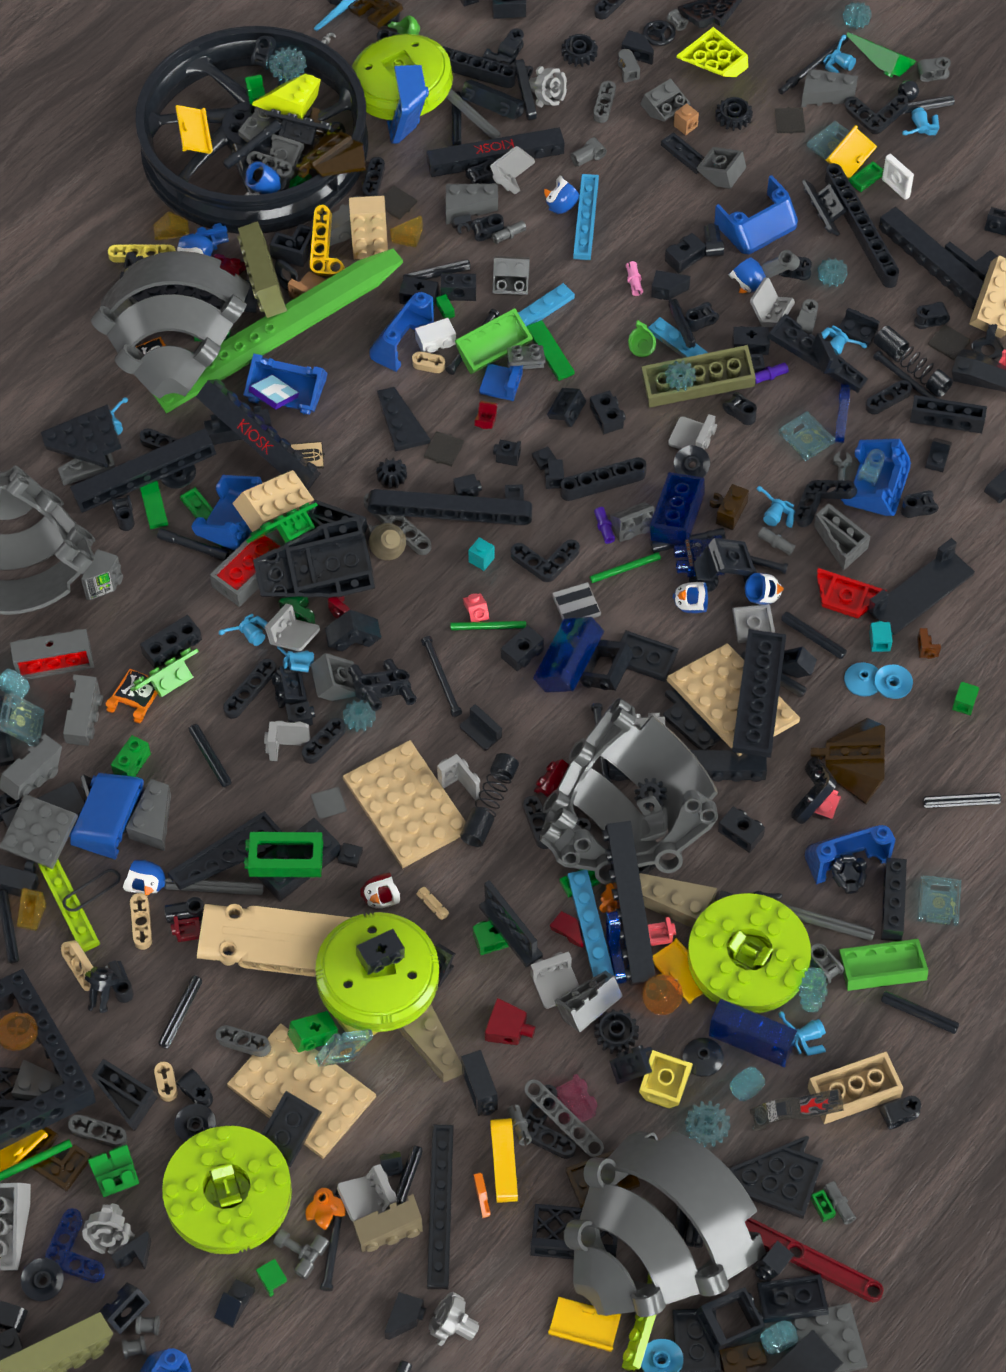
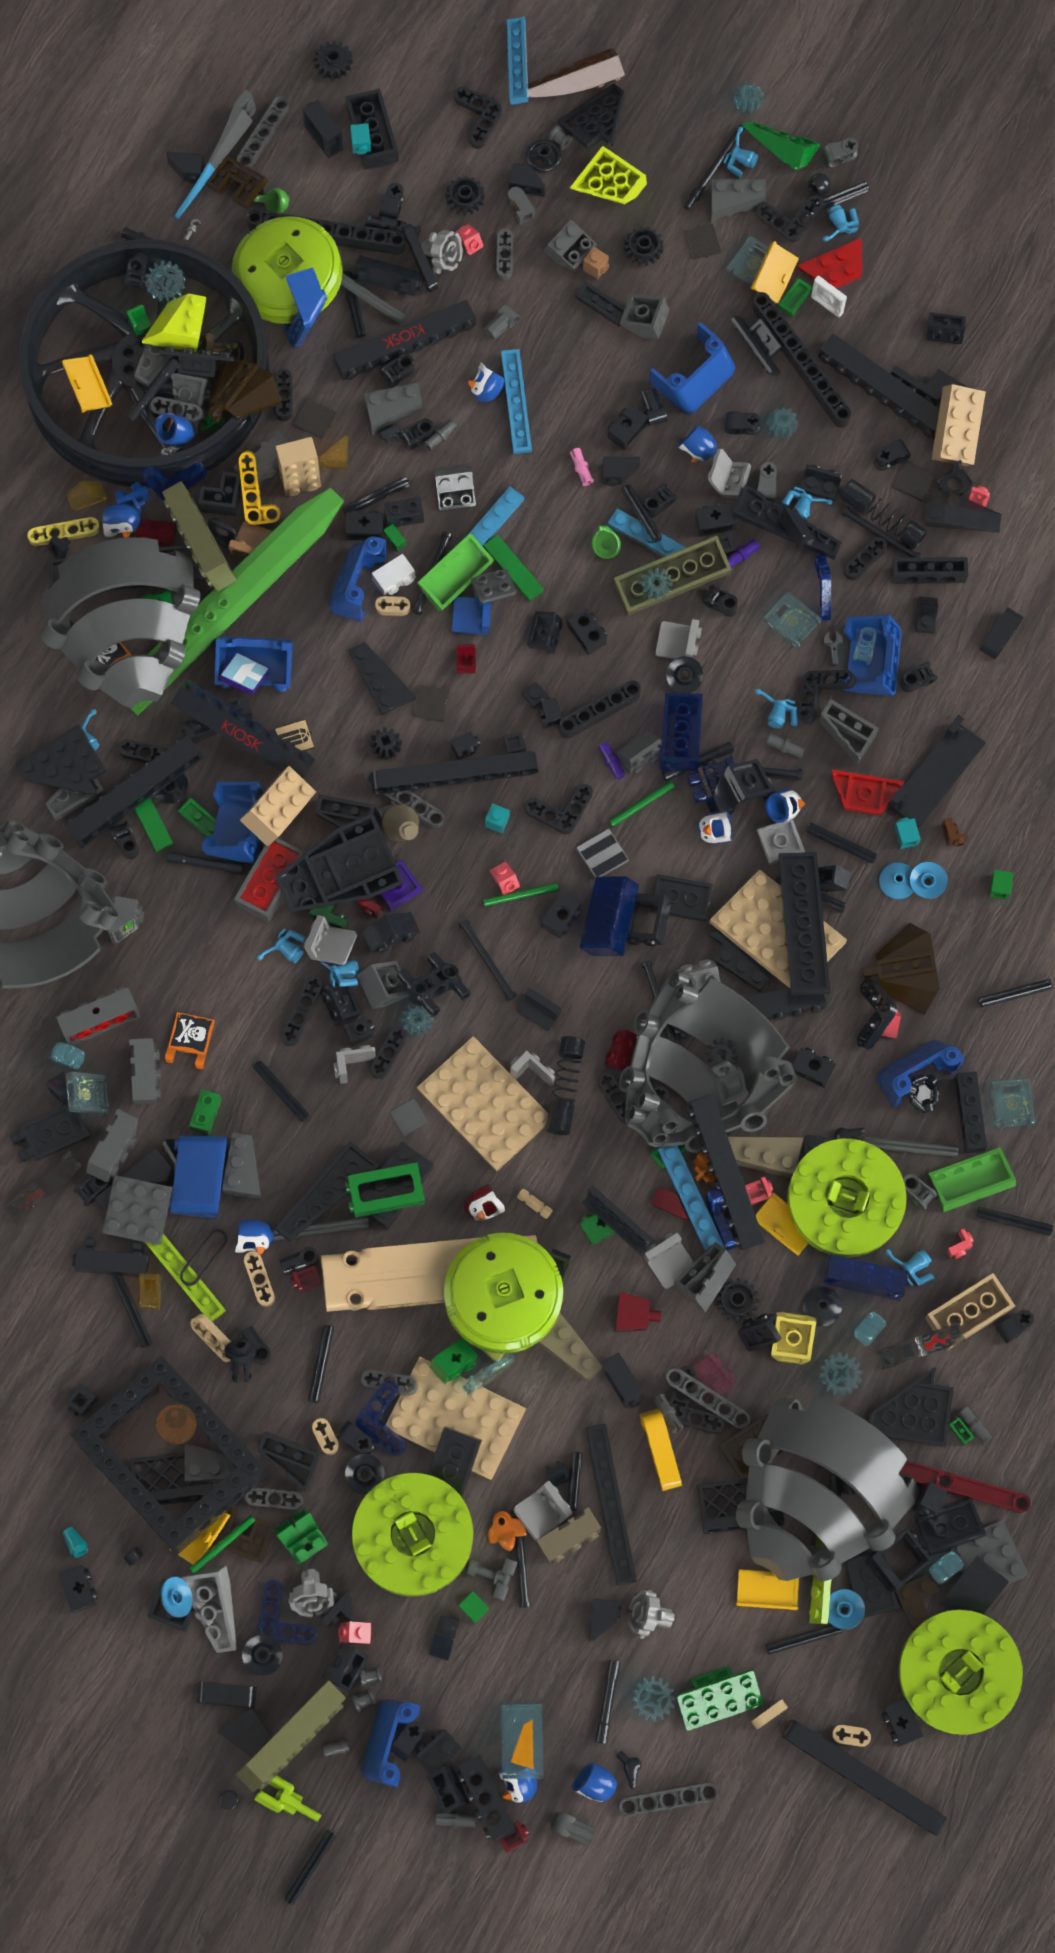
camera: 15 degrees left, 15 degrees up
(144, 1277) = (355, 1632): none -> coral bracket
(168, 677) = (219, 1013): bracket -> none
(172, 633) = (212, 966): black brick -> none
(220, 1070) = (374, 1417): none -> clear blue beam
(263, 222) = (191, 474): none -> clear blue beam
(289, 527) = (303, 832): green bracket -> none
(350, 854) = (443, 1168): black plate -> none
(373, 600) = (400, 894): none -> dark purple tile
(380, 952) = (510, 1270): black brick -> none
(482, 1195) = (647, 1486): orange tile -> none
(507, 452) = (500, 701): black brick -> none
(509, 167) = (422, 363): light grey bracket -> none
(576, 84) = (470, 239): none -> coral bracket
(662, 994) = (772, 1254): clear orange tile -> none
(731, 506) = (733, 716): dark brown brick -> none
(781, 264) = (728, 427): dark grey piece -> none
(813, 989) = (913, 1223): clear light blue gear -> none
(860, 1025) = (959, 1249): none -> coral bracket
(916, 157) = (838, 265): none -> red wing

